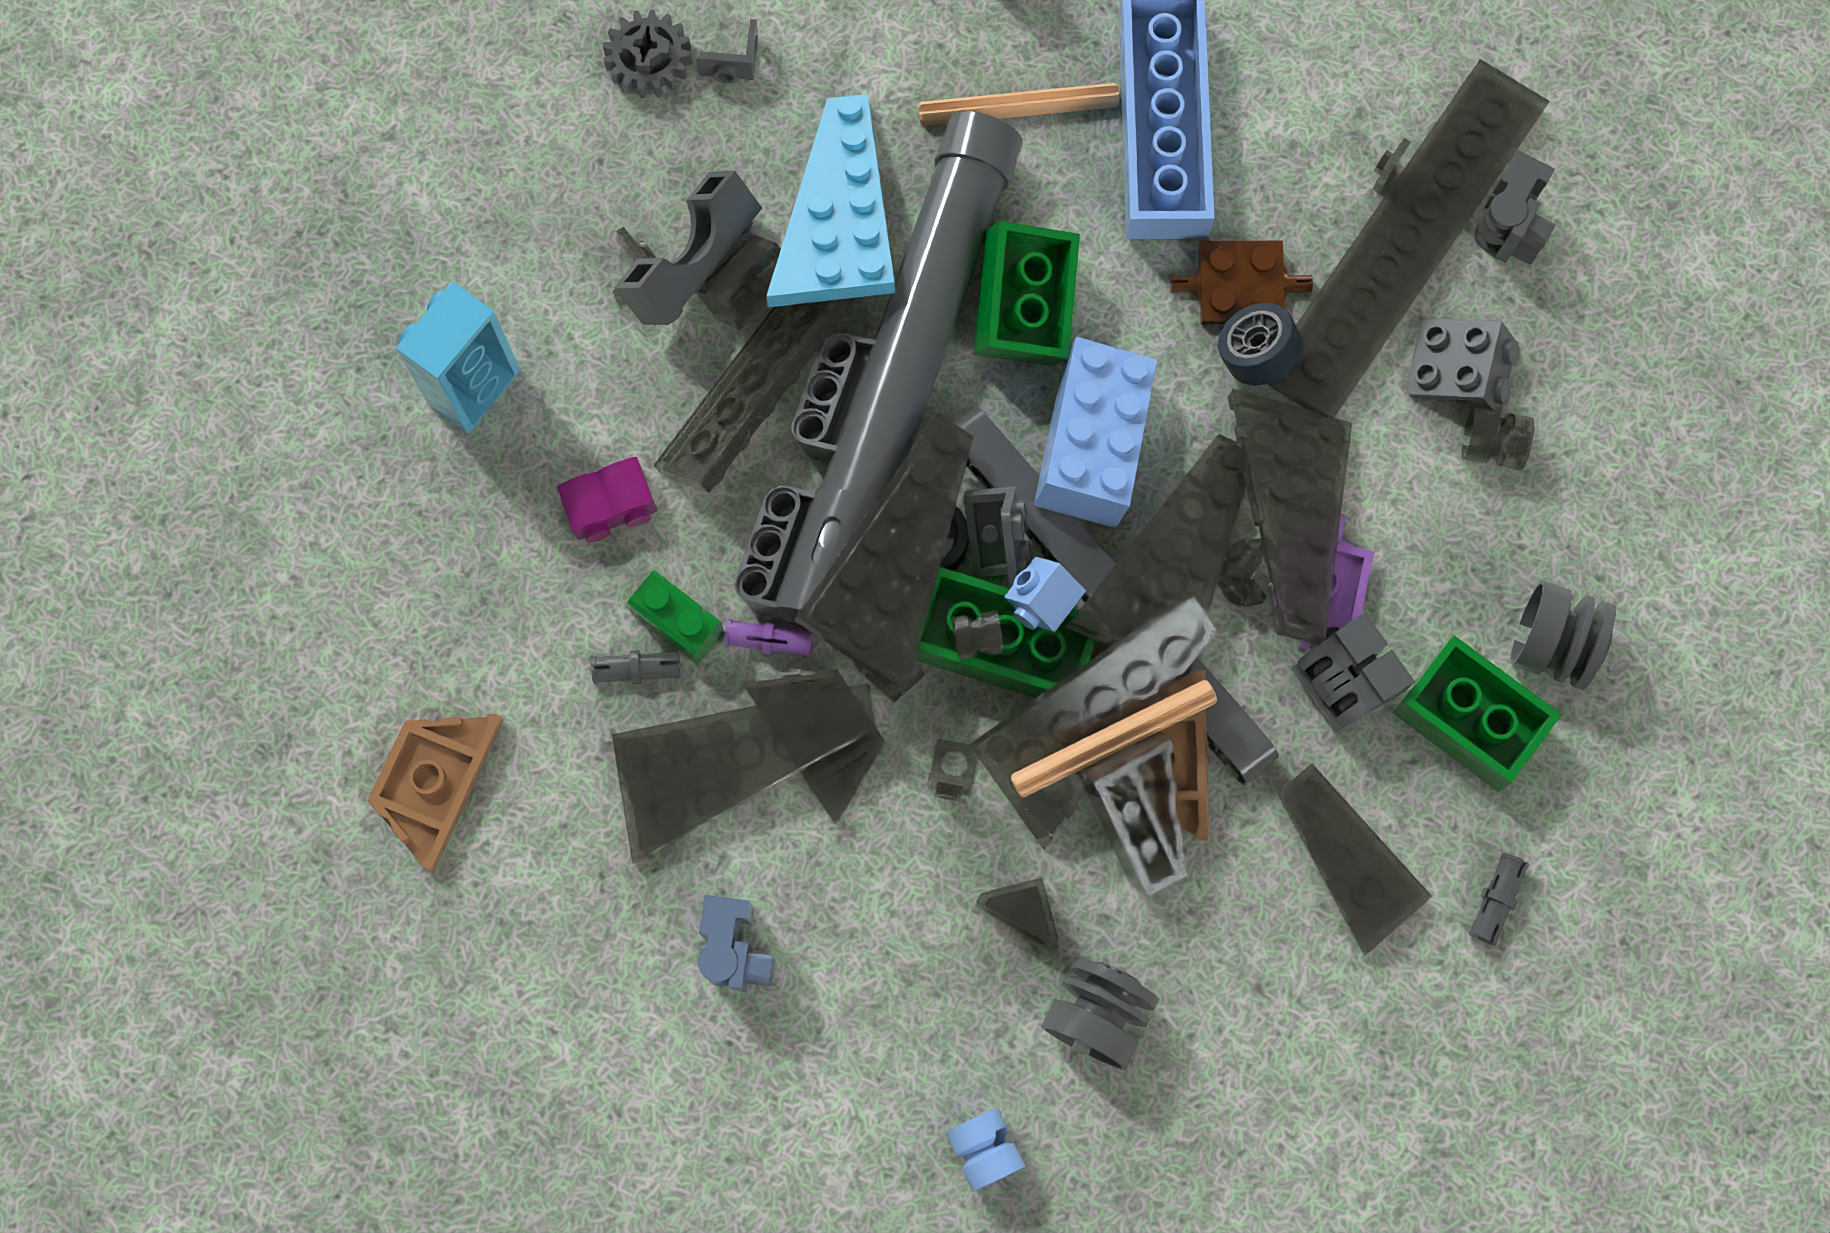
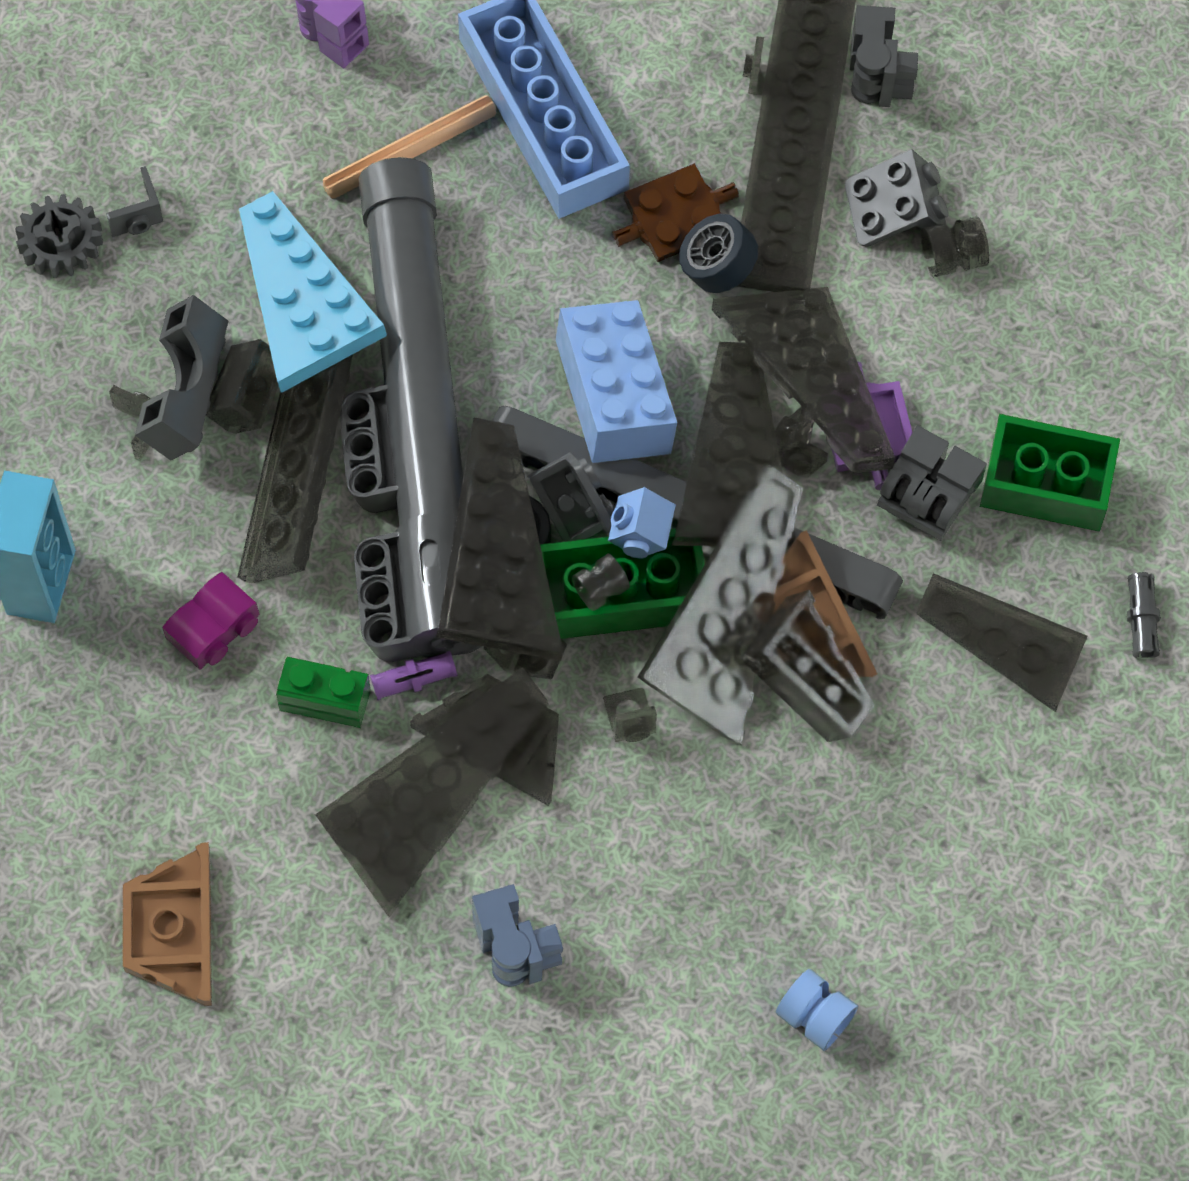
camera: 25 degrees left, 10 degrees down
(635, 667) = (307, 751): dark grey pin -> none
(1024, 909) = (749, 800): clear smoke slope -> none
(1026, 294) = (499, 293): green brick -> none
(1100, 1011) = (858, 842): dark grey wheel -> none
(1114, 738) = (758, 617): light nougat axle -> none
(1573, 638) = (1096, 377): dark grey wheel -> none

